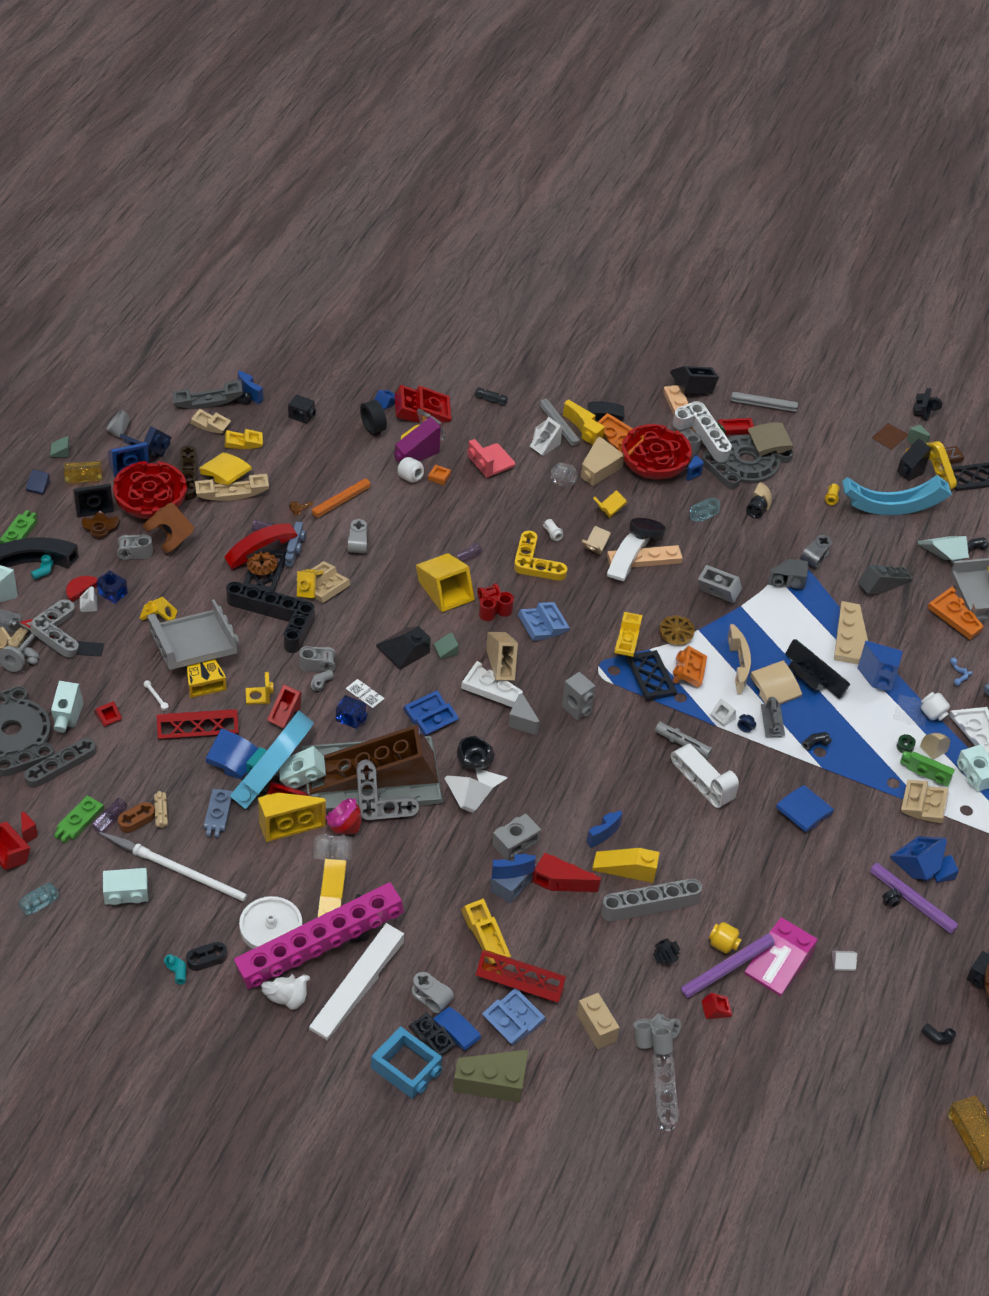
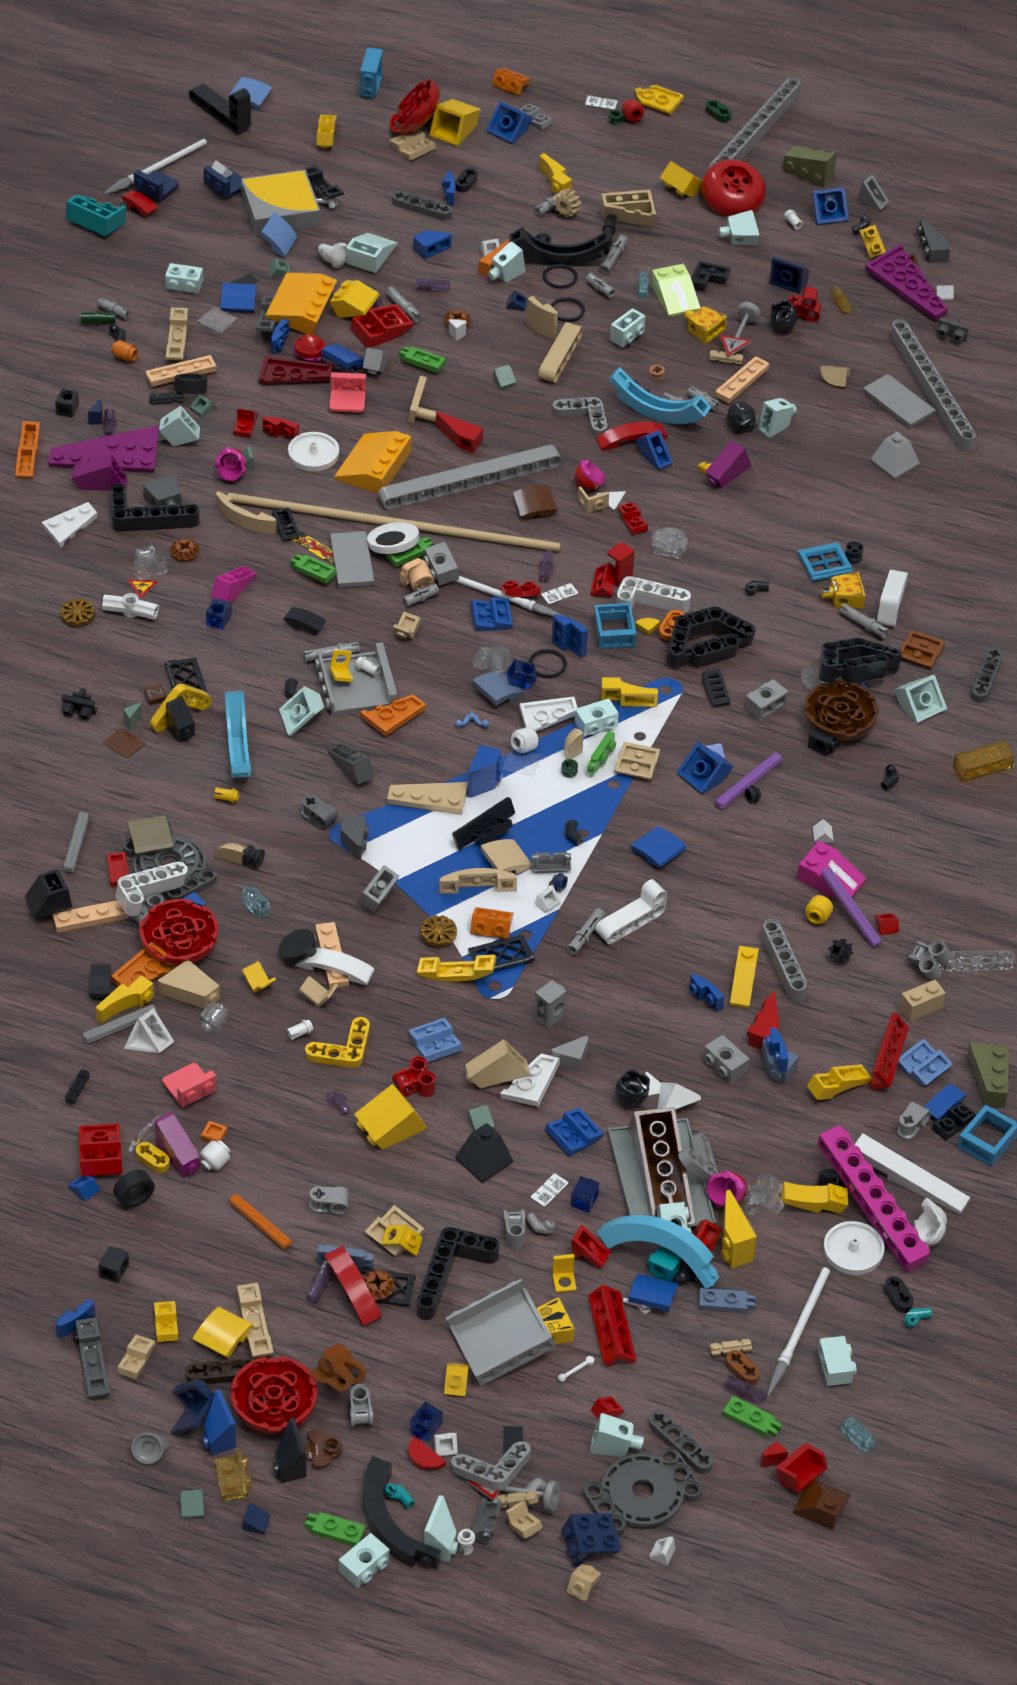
camera: 90 degrees left, 0 degrees up
(296, 508) = (277, 1259): clear orange hand -> none

